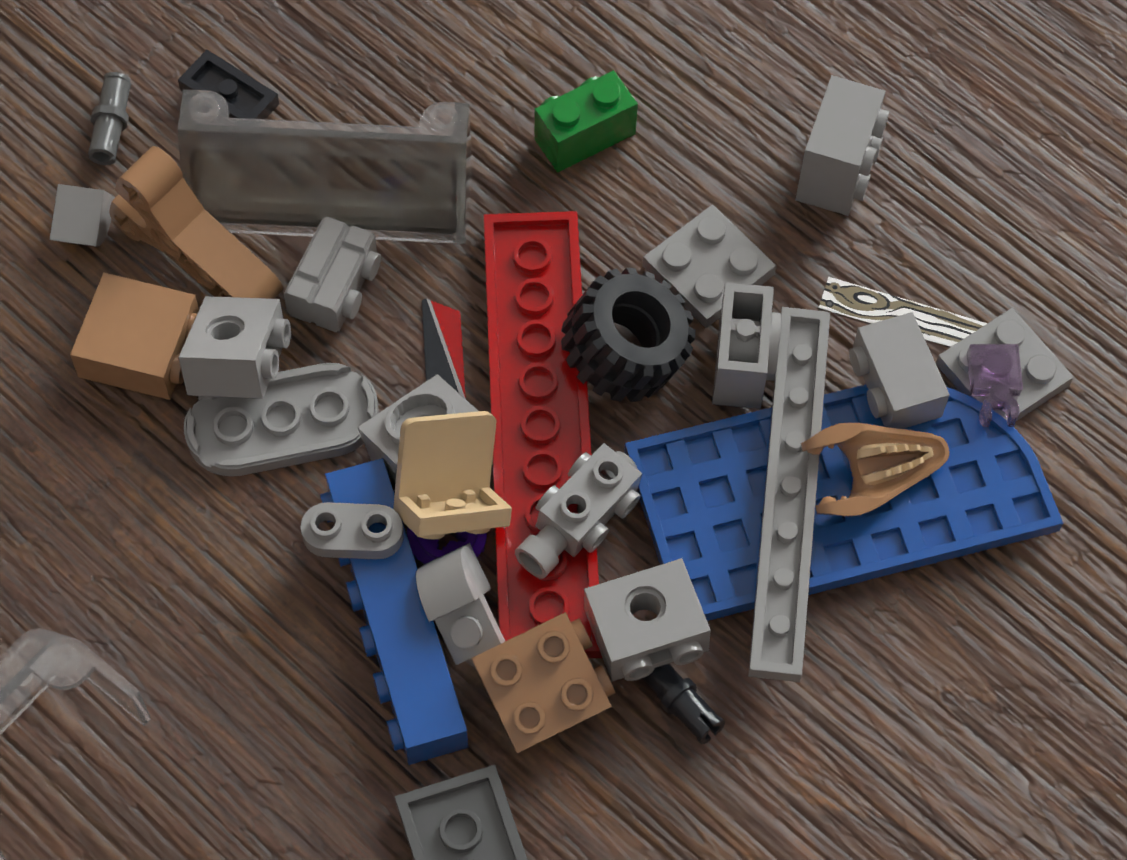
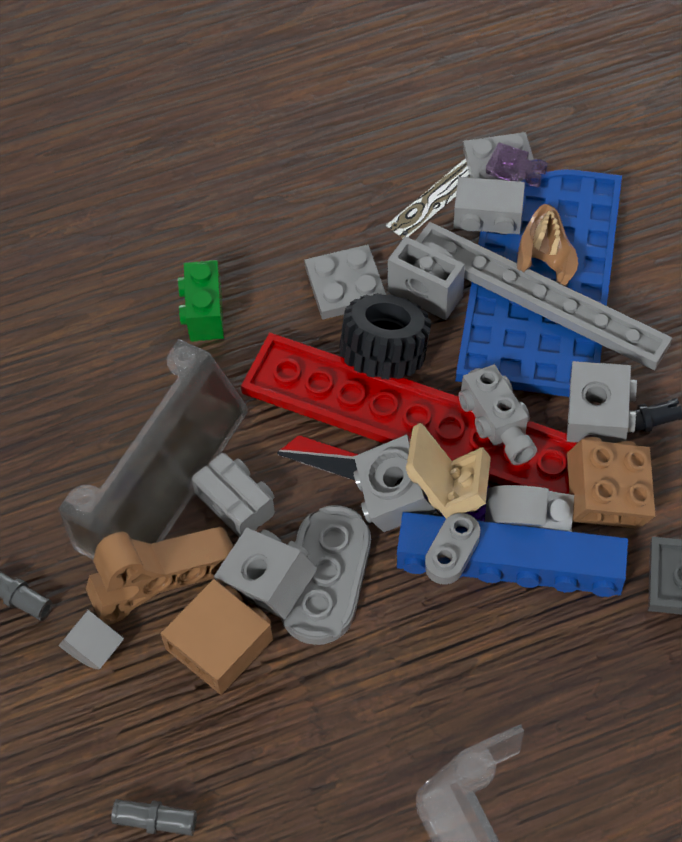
camera: 60 degrees left, 5 degrees down
(242, 93) = (37, 507): black plate -> none
(842, 146) = (310, 169): light grey brick -> none

